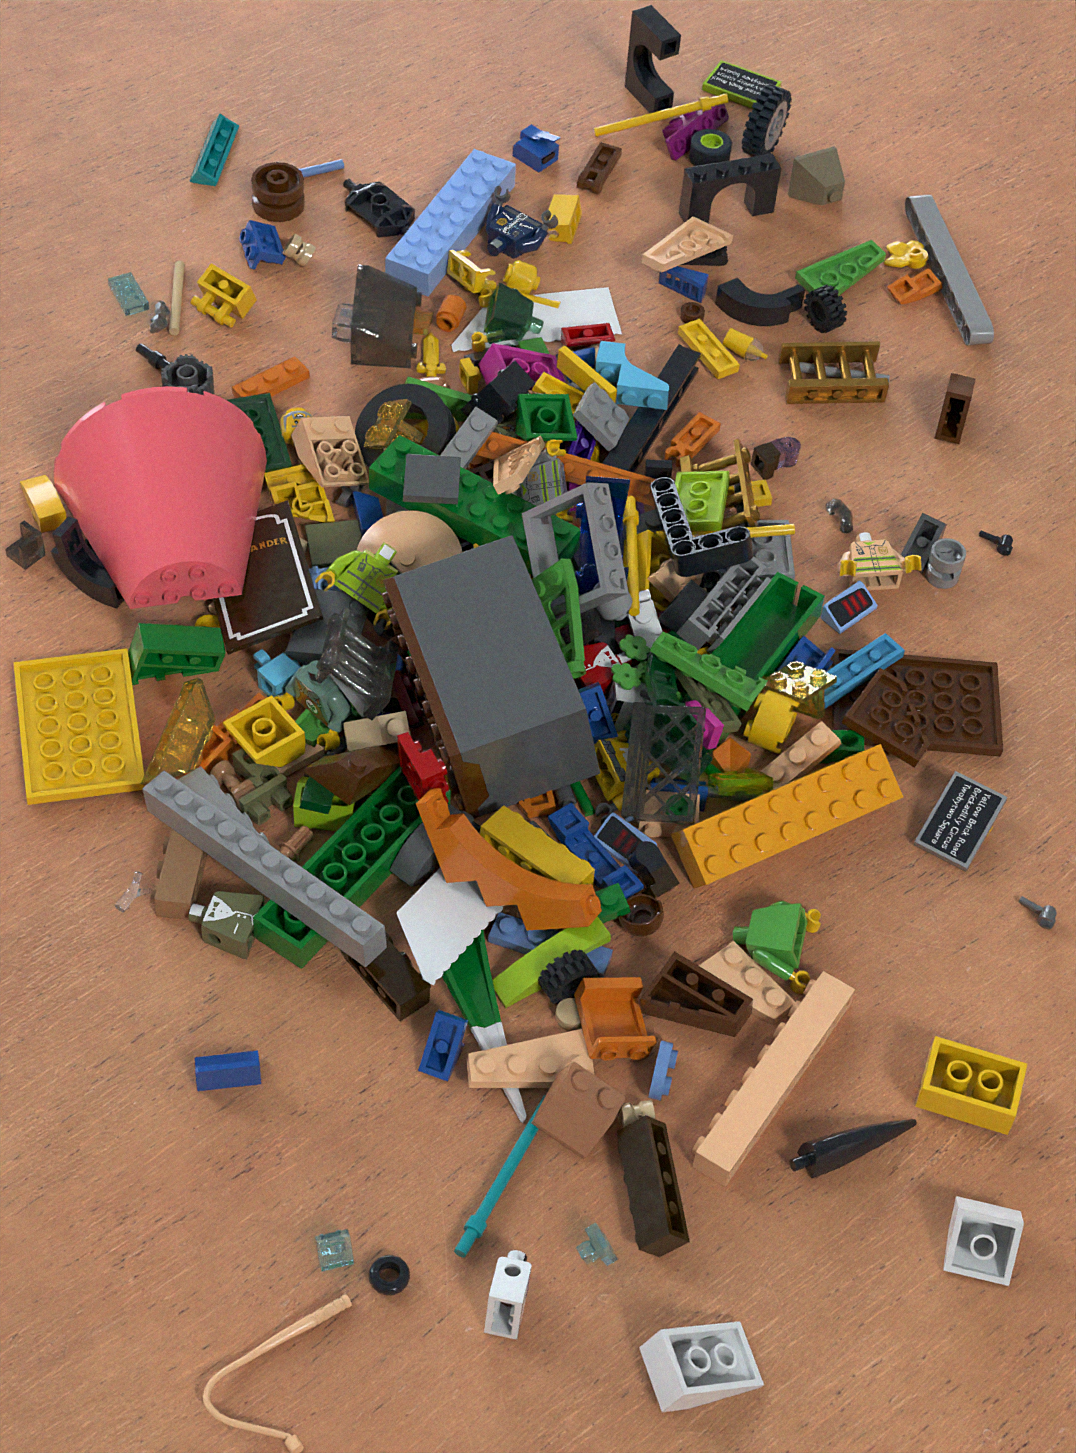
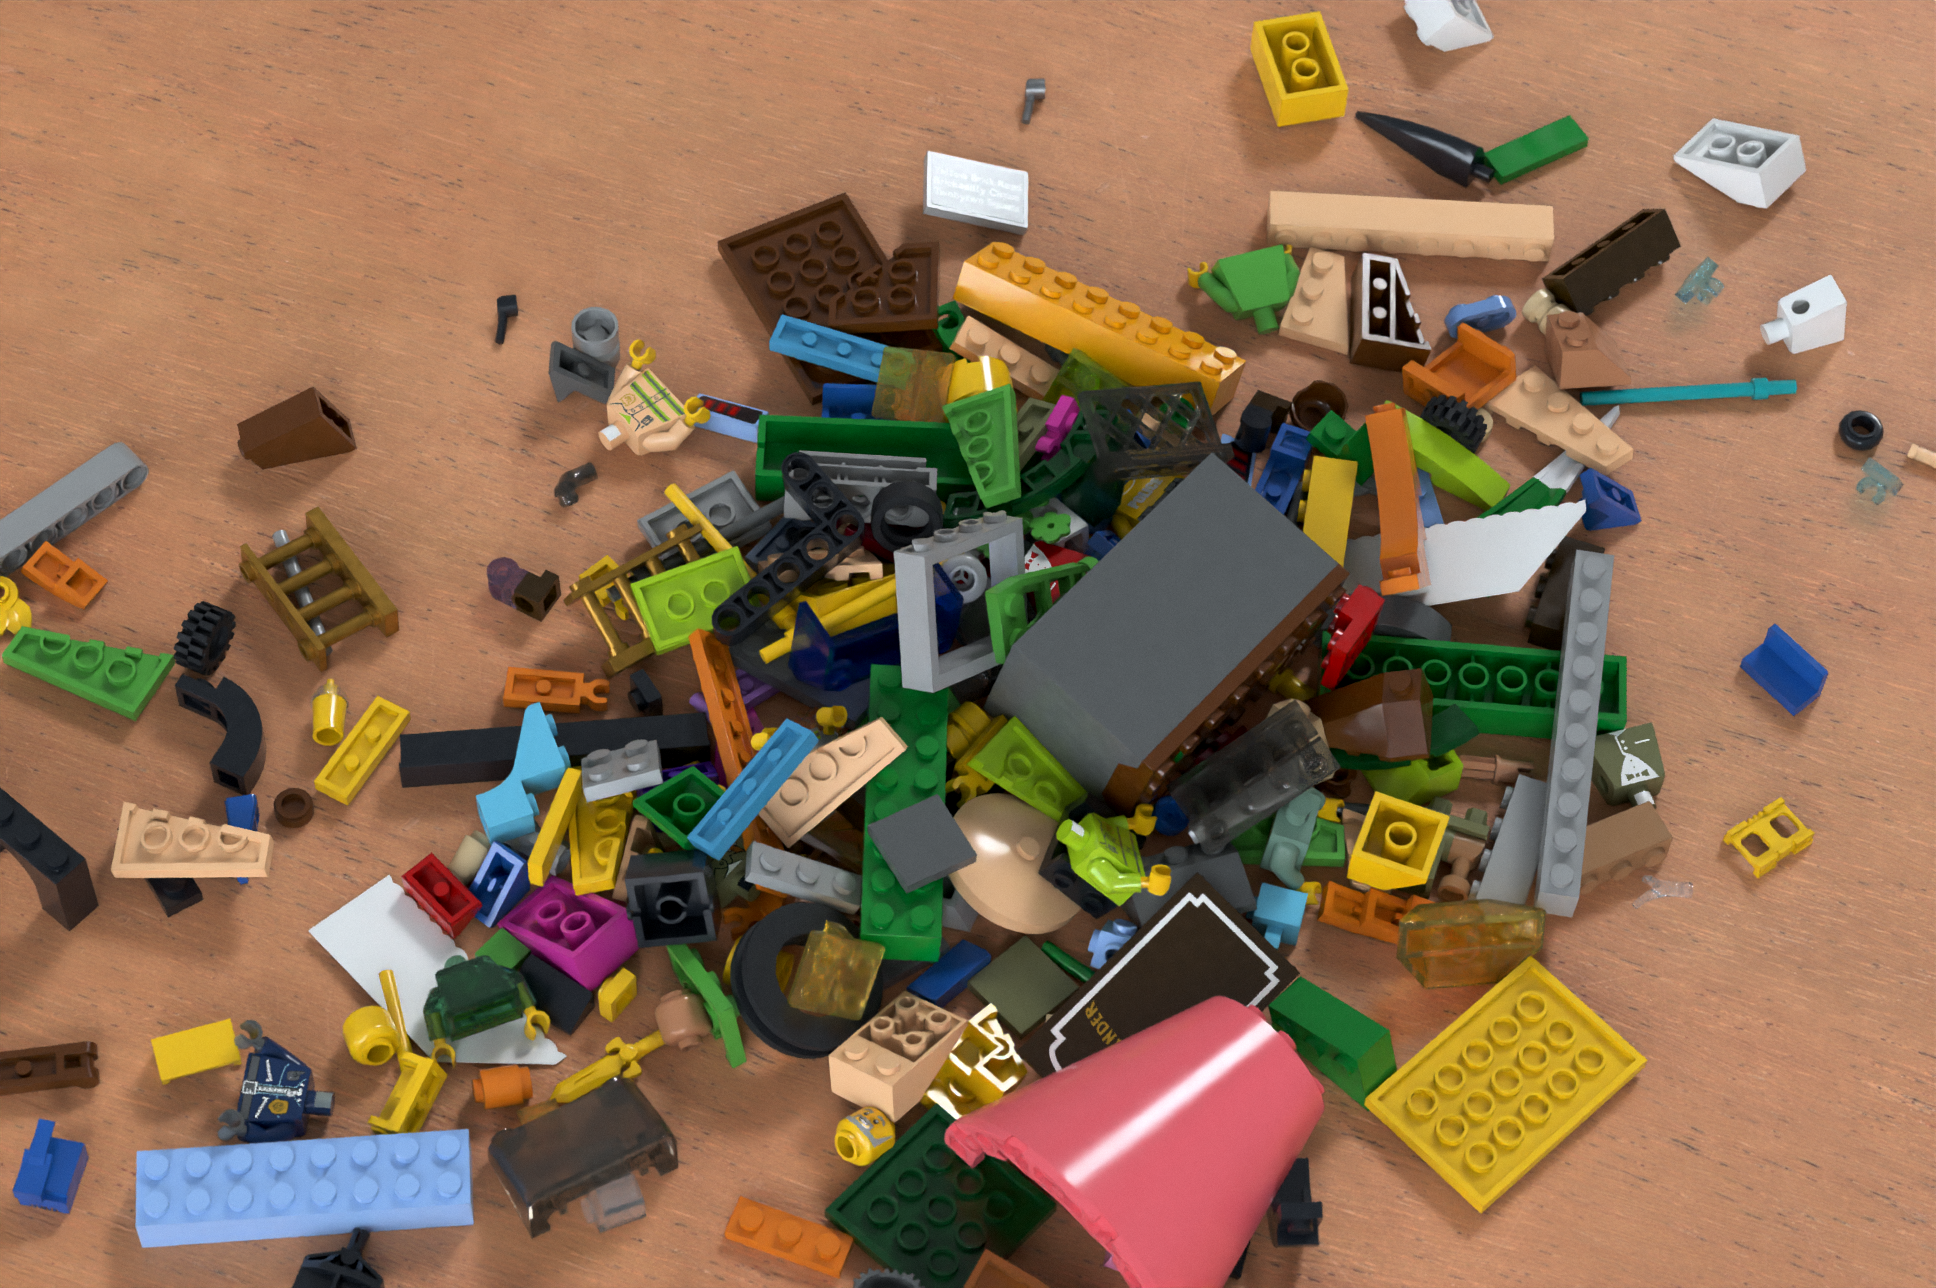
camera: 120 degrees left, 5 degrees up
(129, 976) = (1778, 846): none -> yellow piece
(526, 424) = (752, 789): none -> dark azure plate
(805, 1222) = (1536, 149): none -> green tile

